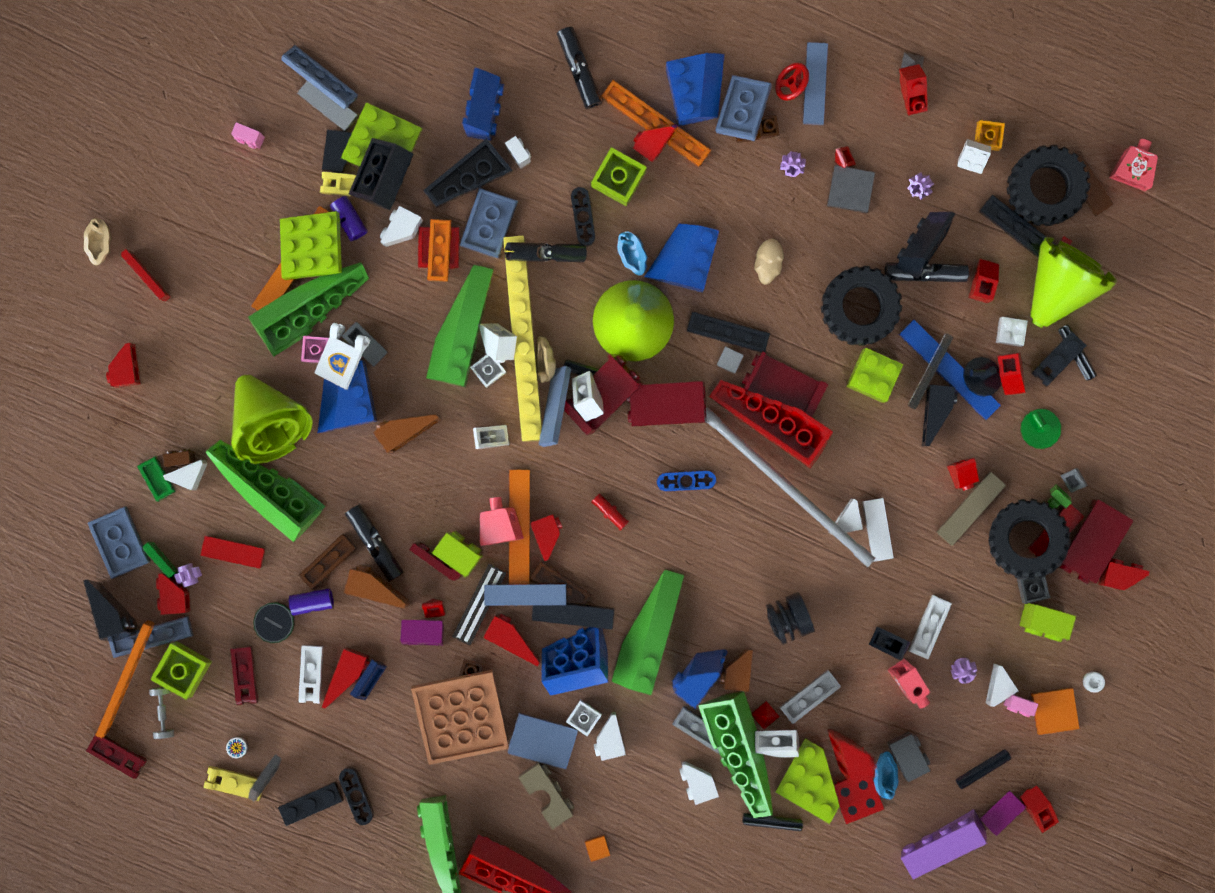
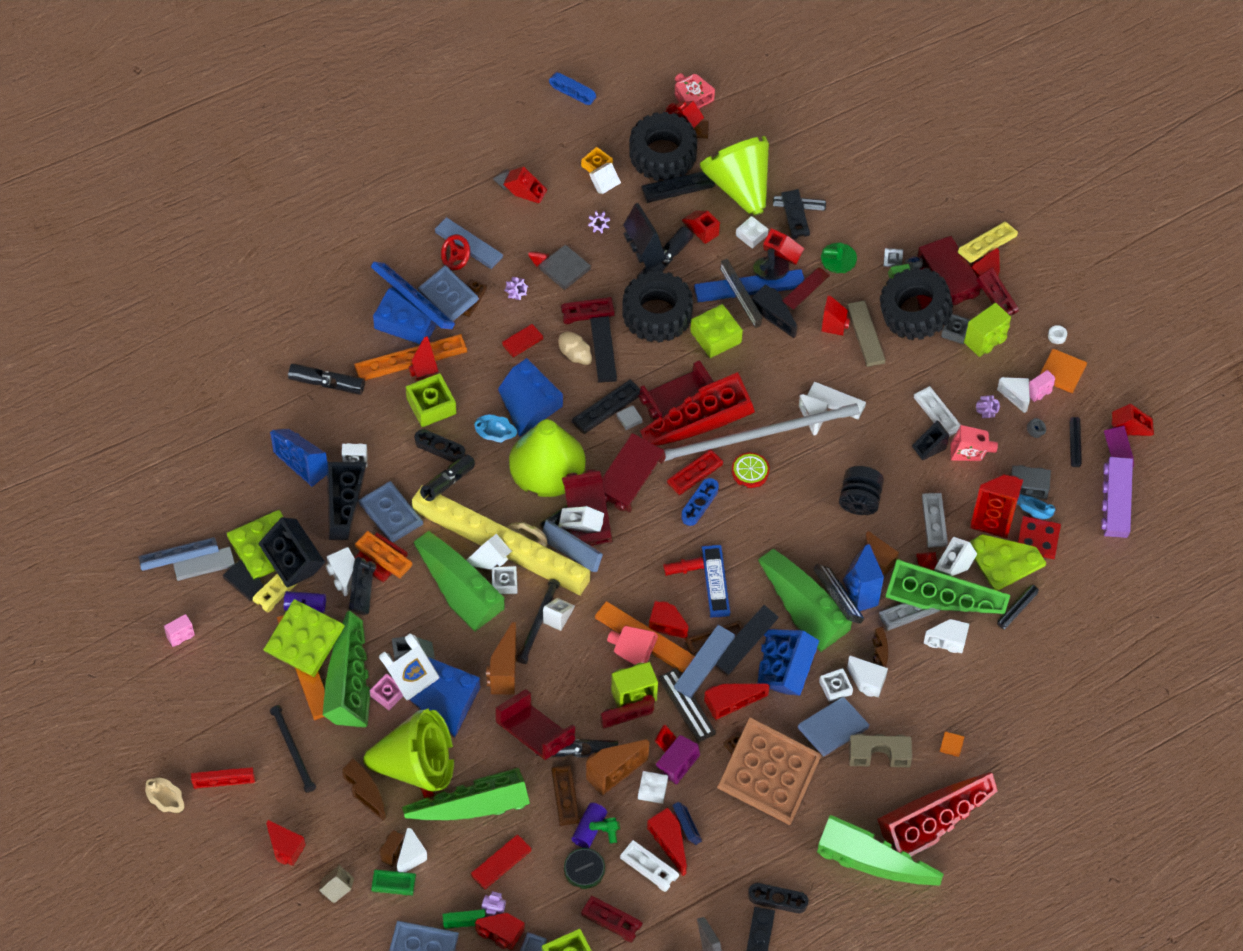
camera: 55 degrees left, 30 degrees down
(120, 436) = (336, 884): none -> panel
(212, 310) = (309, 785): none -> black bar
(217, 397) = (364, 788): none -> reddish brown slope
(322, 619) = (609, 825): none -> green piece
(363, 497) = (532, 726): none -> dark red panel
(383, 628) = (653, 787): none -> white piece
(395, 255) = (361, 586): none -> black plate
(470, 425) = (523, 656): none -> black bar
(616, 547) = (715, 581): none -> tile
(638, 738) = (881, 647): none -> reddish brown slope
(670, 666) = (838, 593): none -> clear smoke tile
(714, 455) = (695, 472): none -> red tile
(717, 78) = (413, 295): none -> blue tile
(744, 208) = (522, 340): none -> red tile
(750, 502) = (750, 470): none -> tile
(786, 286) = (603, 349): none -> black tile
(817, 244) = (587, 309): none -> dark red plate
(973, 726) = (1036, 428): none -> dark grey tile
(980, 424) = (806, 288): none -> dark red sticker
(1060, 51) = (579, 92): none -> blue beam
(1081, 503) = (914, 262): none -> dark grey tile
(1096, 604) = (996, 291): none -> dark red plate
(1101, 178) = (686, 110): none -> red slope
(1152, 557) = (987, 242): none -> light yellow tile

